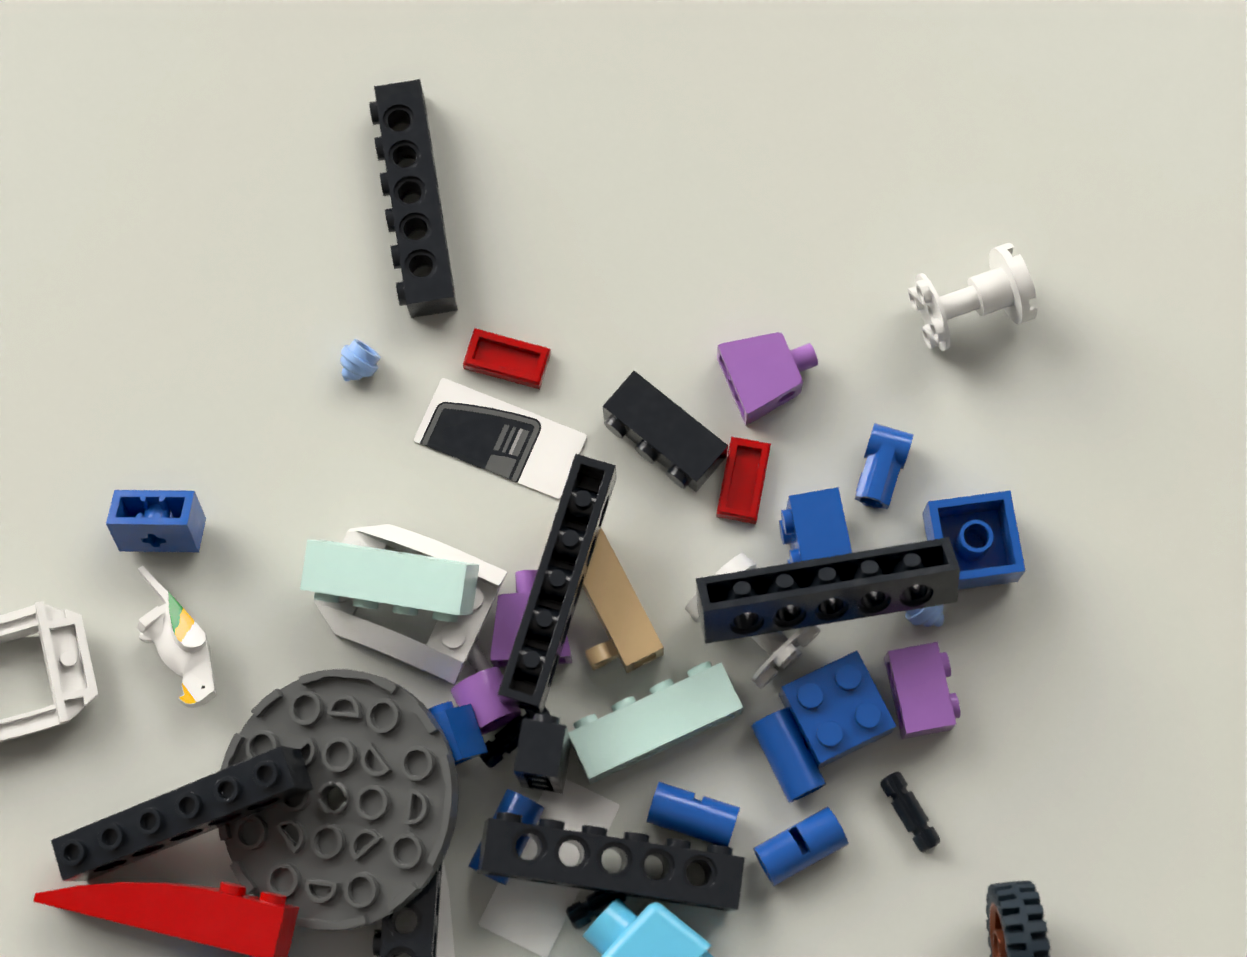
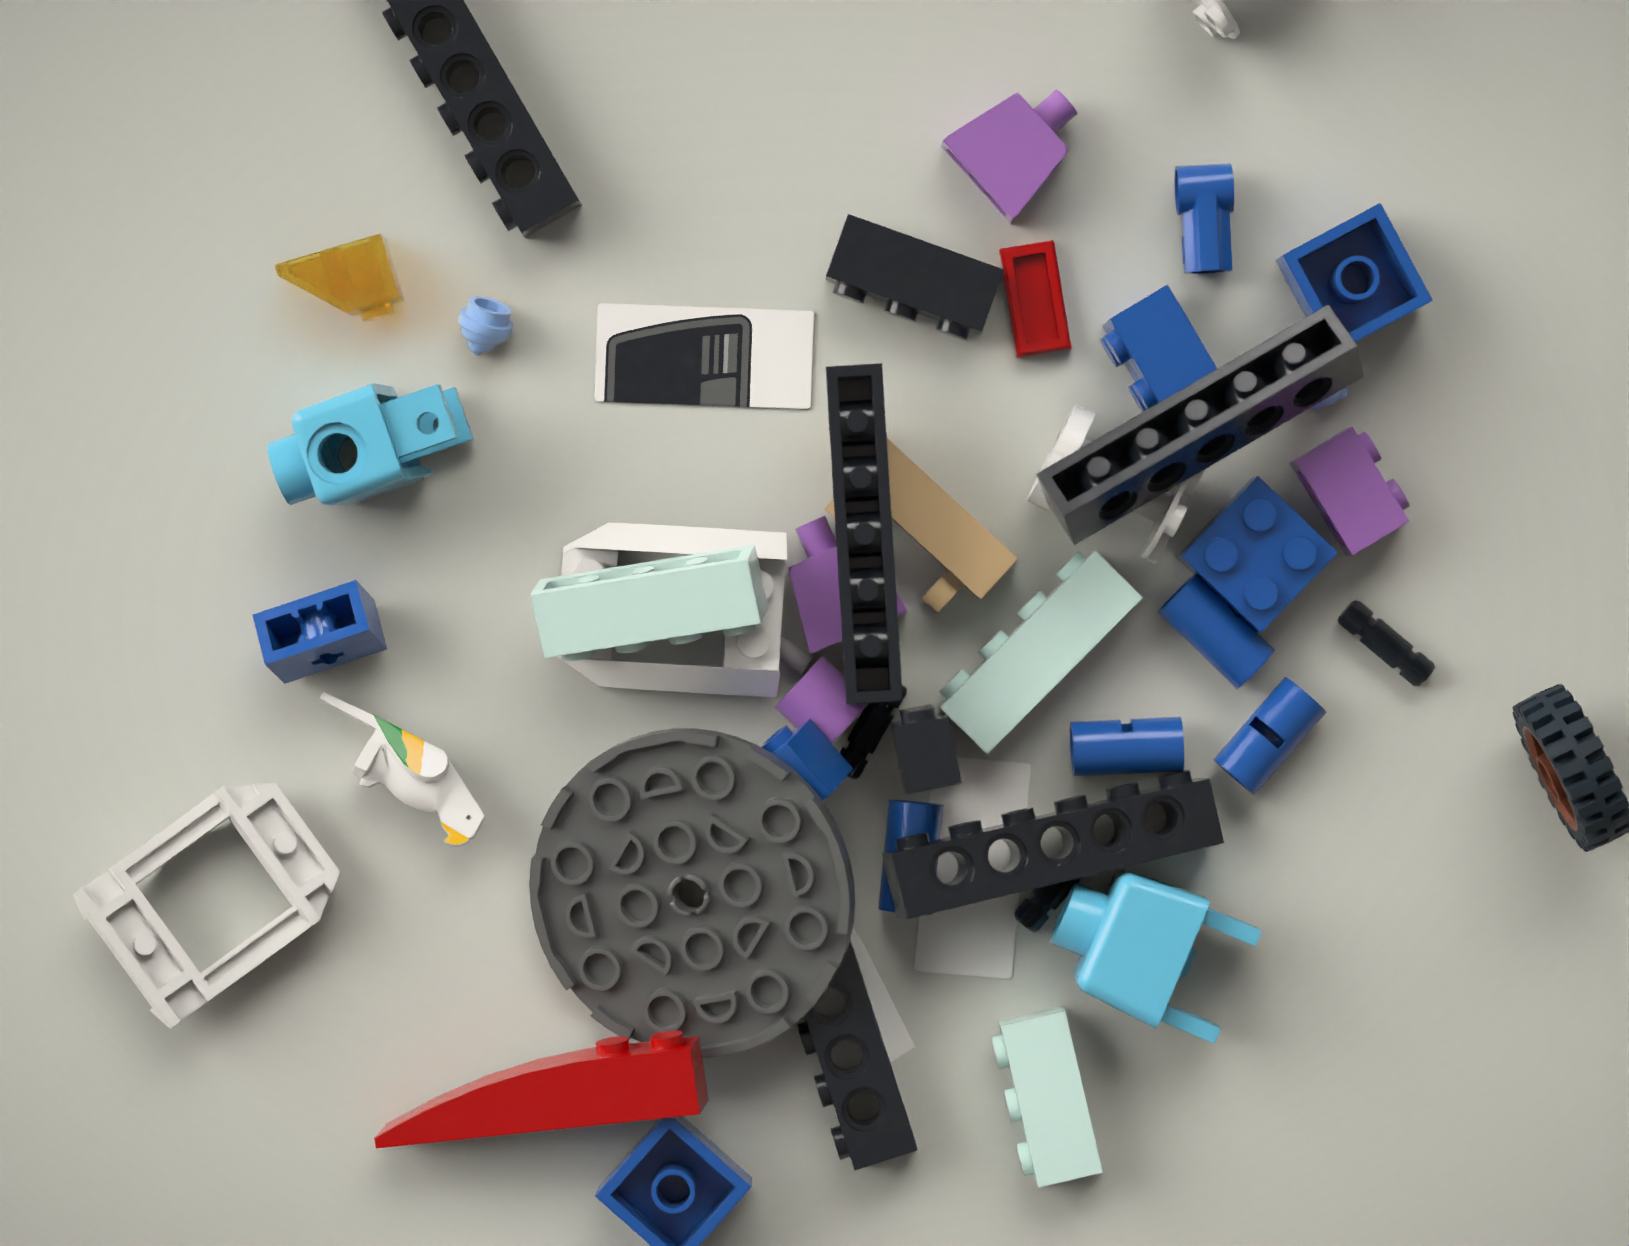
camera: 25 degrees left, 15 degrees up
(182, 814) = (513, 981): black brick -> none
(241, 404) = (388, 437): none -> medium azure piece
(281, 296) = (351, 277): none -> clear yellow slope
(507, 358) = (672, 248): red tile -> none

